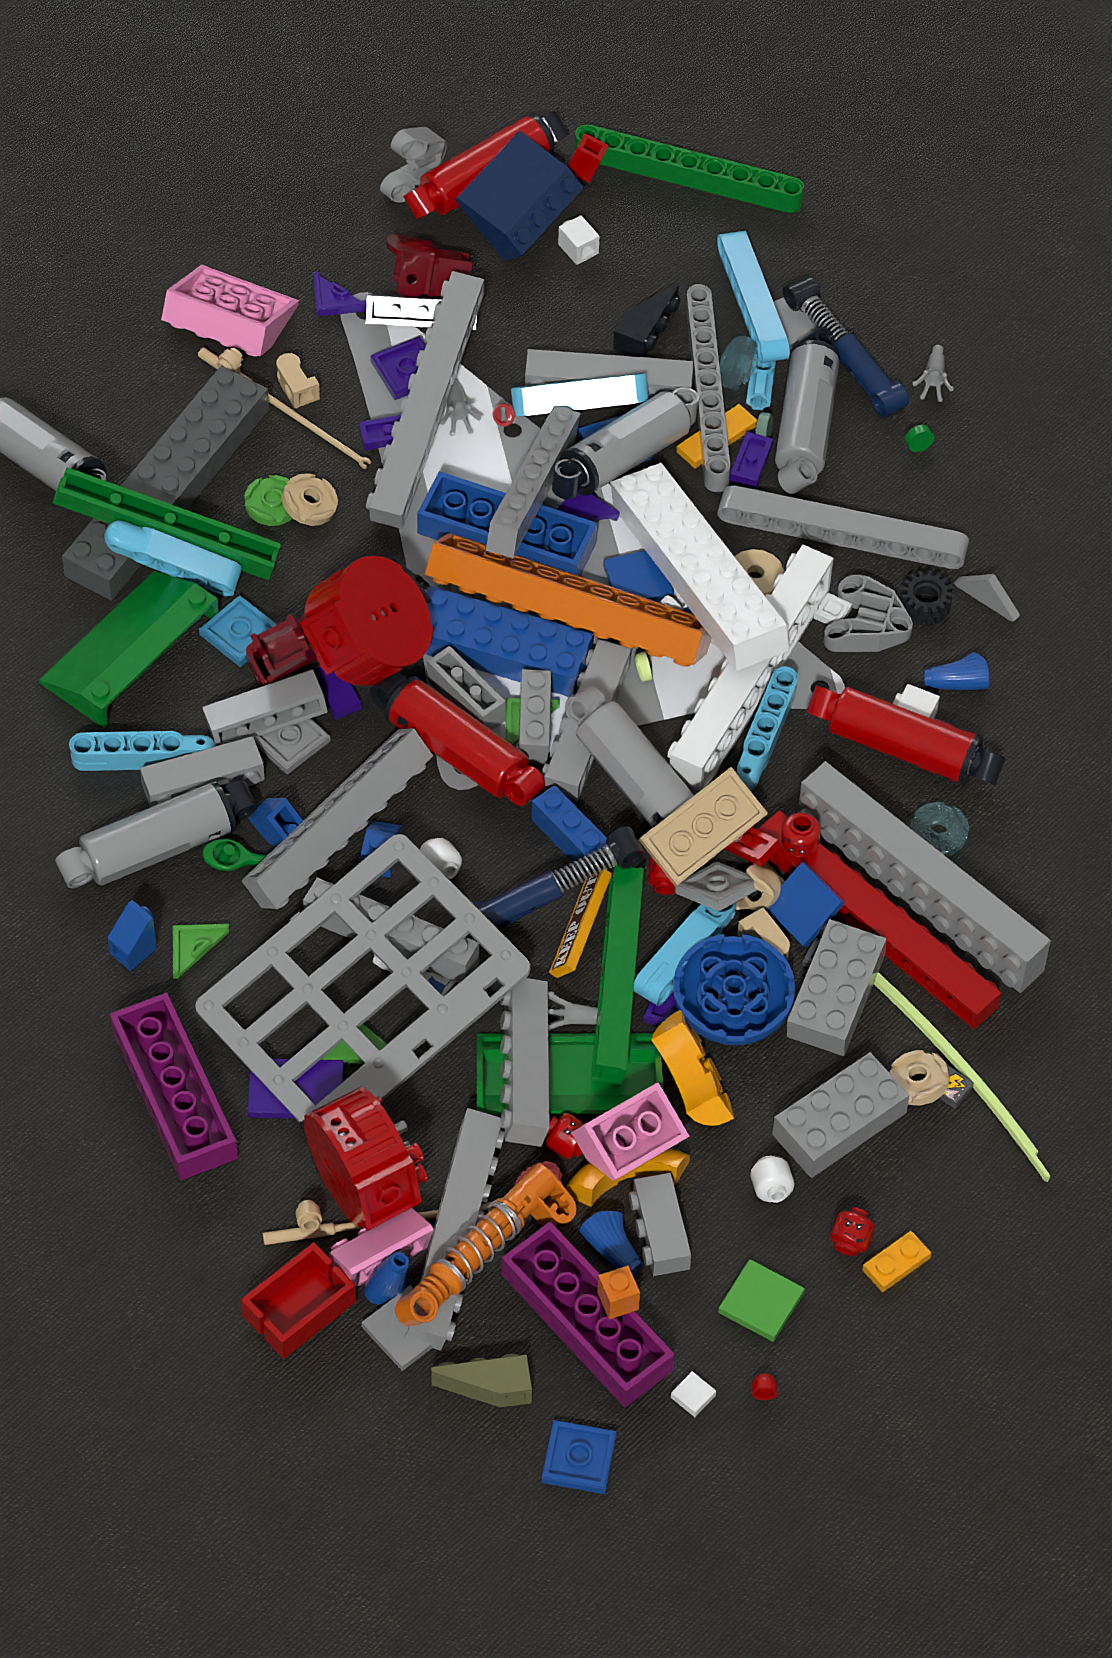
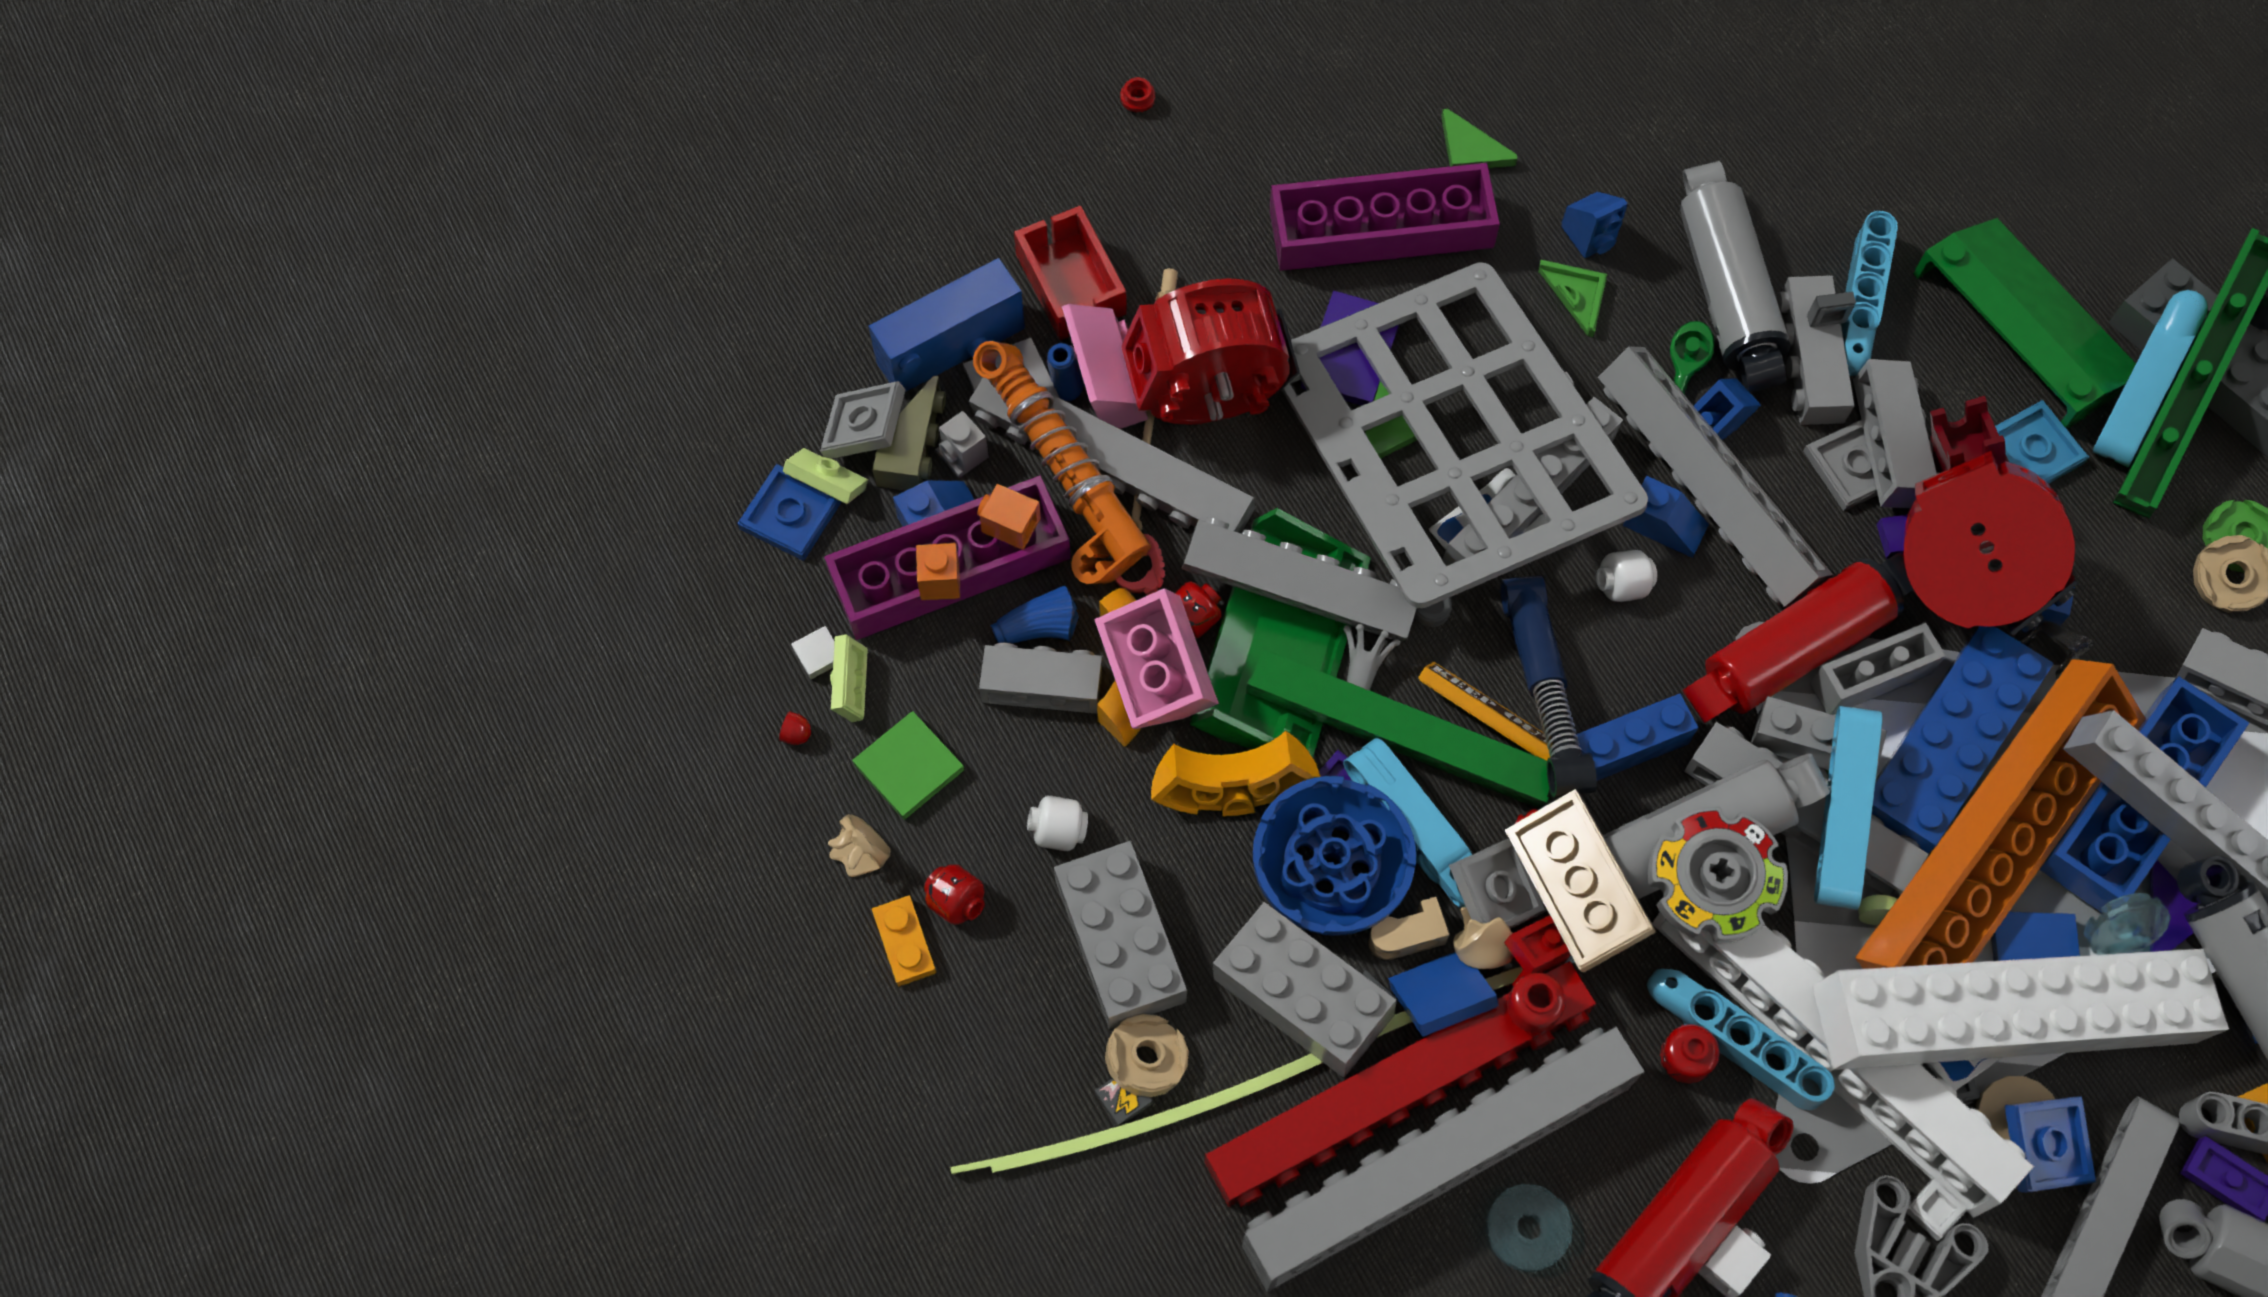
camera: 110 degrees right, 10 degrees up
(74, 1048) = (1472, 146): none -> bright green tile
(94, 1301) = (1137, 87): none -> red plate
(180, 757) = (1831, 309): none -> dark grey tile
(382, 1374) = (948, 325): none -> blue brick
(480, 1338) = (962, 444): none -> light grey brick
(487, 1415) = (863, 420): none -> light grey tile
(541, 1435) = (825, 475): none -> yellowish green plate
(544, 1344) = (930, 499): none -> blue slope
(552, 1258) = (1009, 516): none -> orange brick
(566, 678) = (1848, 807): none -> medium azure beam
(607, 525) = (2127, 925): none -> clear light blue tile
(679, 736) = (1745, 860): none -> light grey piece
(711, 1359) = (849, 678): none -> yellowish green plate
(765, 550) = (2054, 1142): none -> blue tile
(789, 755) = (1689, 1053): none -> red head
(839, 1310) = (858, 847): none -> tan piece

